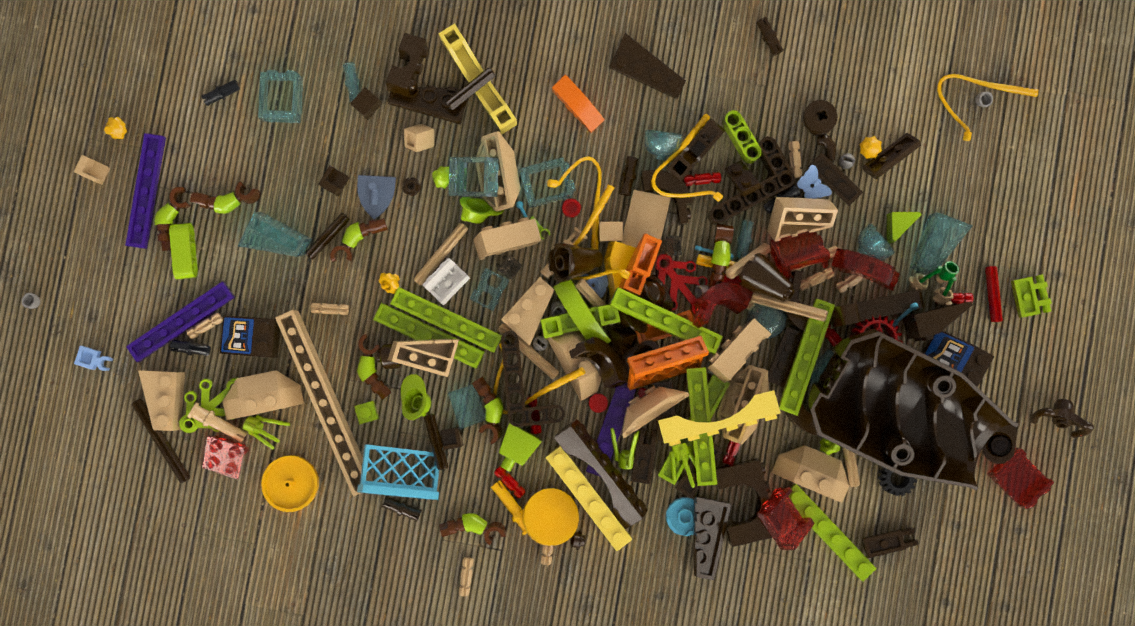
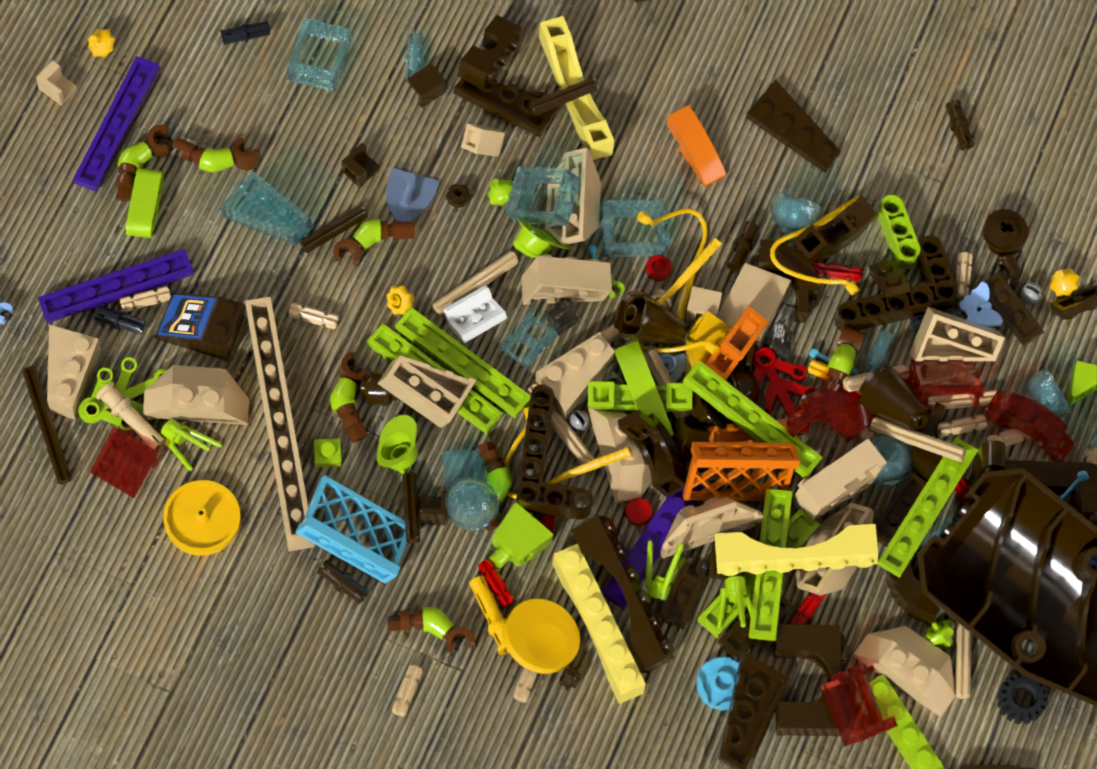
camera: 10 degrees right, 20 degrees down
(478, 432) = (471, 503): none -> clear light blue cylinder

